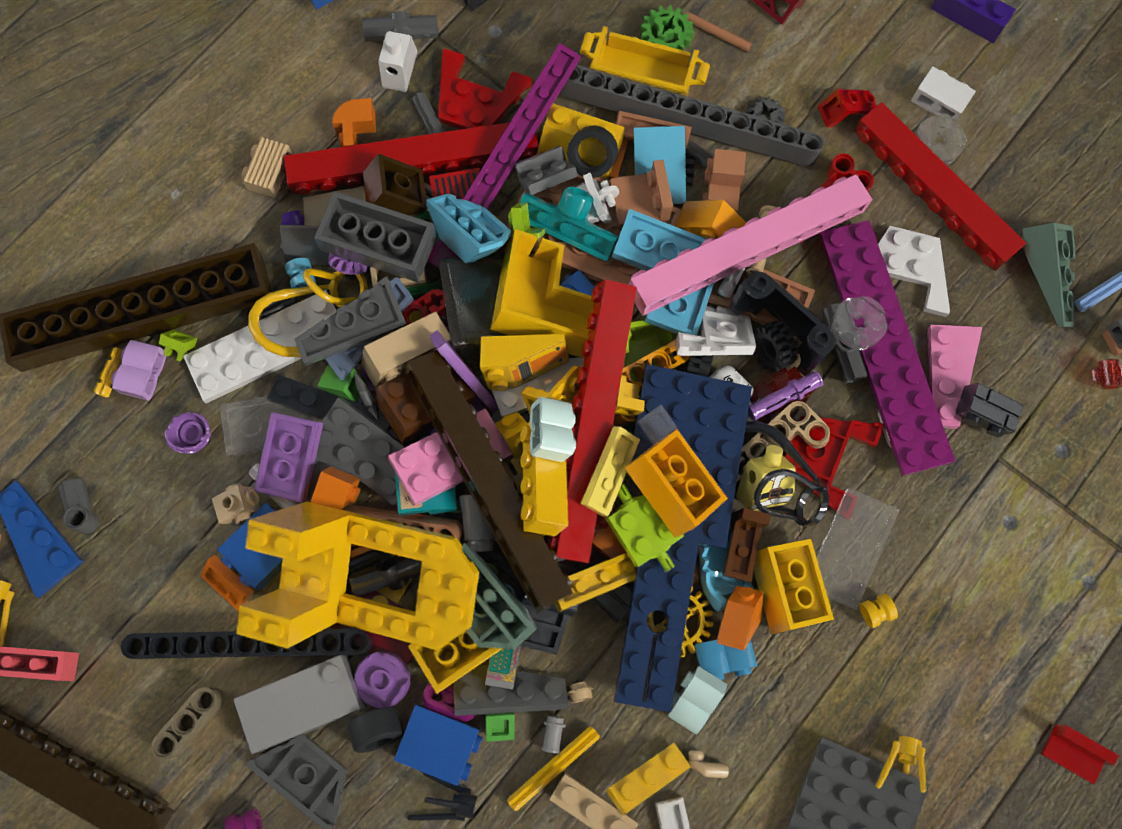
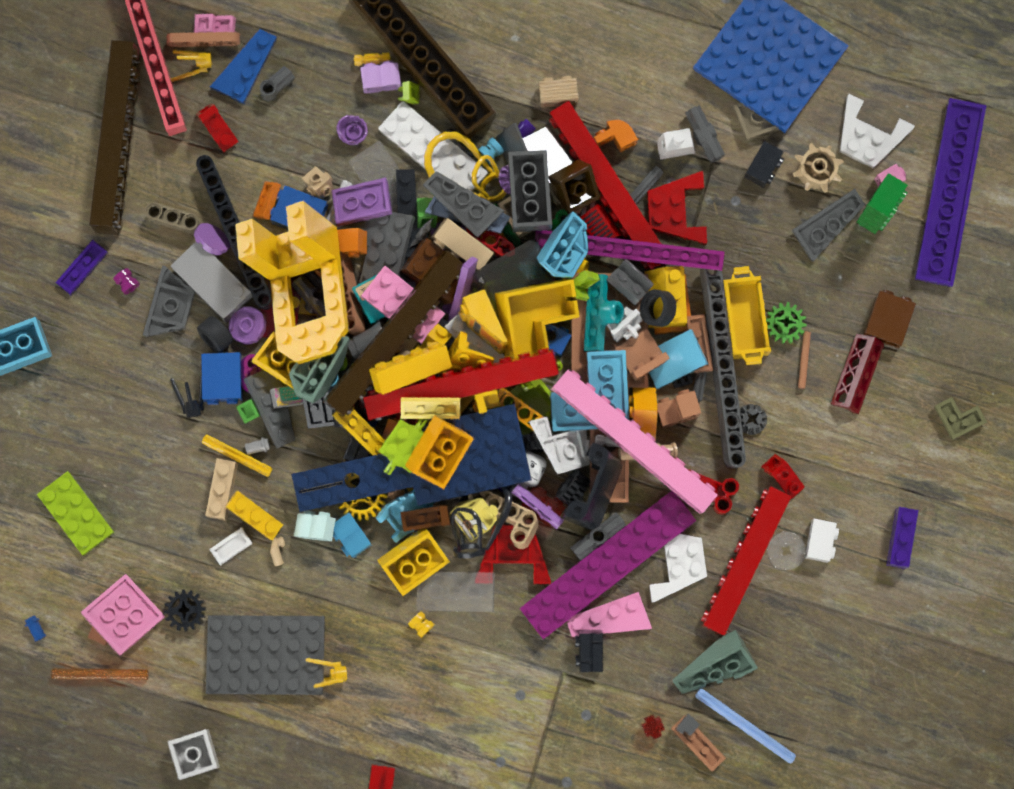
camera: 65 degrees right, 5 degrees up
(94, 609) = (217, 127): none -> red bracket
(241, 679) = (212, 239): none -> medium lavender tile
(552, 429) = (440, 359): light aqua brick -> none
(580, 692) = (290, 453): tan plate -> none
(657, 424) = (475, 426): clear tile -> none
(741, 617) = (377, 534): orange slope -> none
(861, 337) = (621, 532): clear plate -> none

